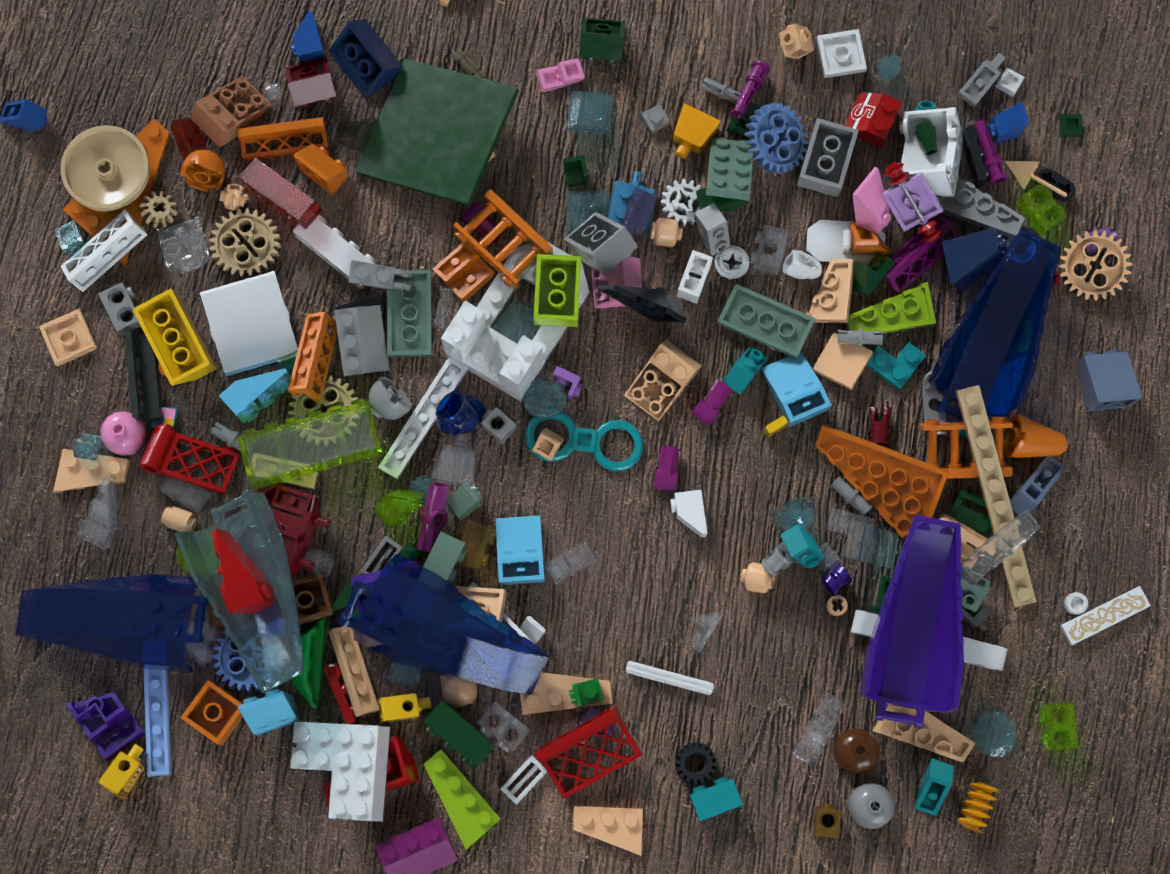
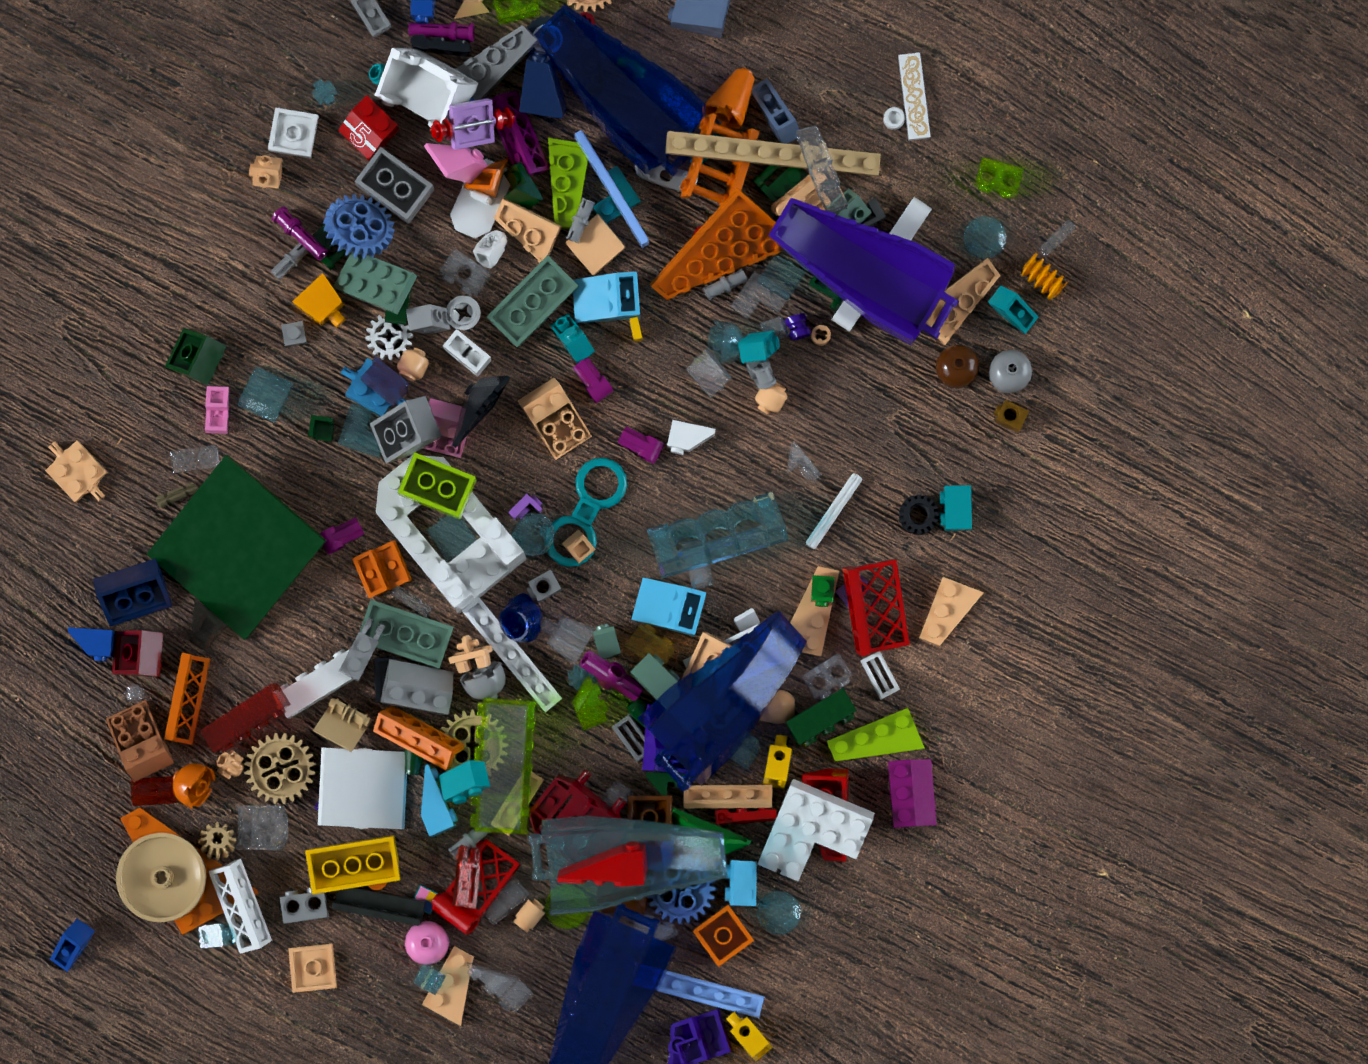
camera: 70 degrees left, 5 degrees up
(192, 447) = (466, 878): none -> clear red hinge
(257, 760) = (778, 912): none -> clear light blue dish
(280, 410) = (464, 781): none -> teal brick
(304, 284) = (342, 724): none -> tan hinge
(321, 168) = (231, 670): orange slope -> none
(403, 372) = (462, 658): none -> light nougat hips
(507, 70) = (195, 459): none -> clear slope
(508, 219) = (349, 508): orange fence -> none
(584, 522) = (761, 509): none -> clear light blue fence
(759, 509) = (708, 373): none -> clear piece
(819, 729) = (926, 392): clear slope -> none
(880, 430) = (673, 236): dark red hinge -> none
(900, 357) = (611, 188): none -> light blue tile
(926, 136) = (408, 84): dark green cone -> none
(1021, 807) = (1057, 237): none -> clear axle

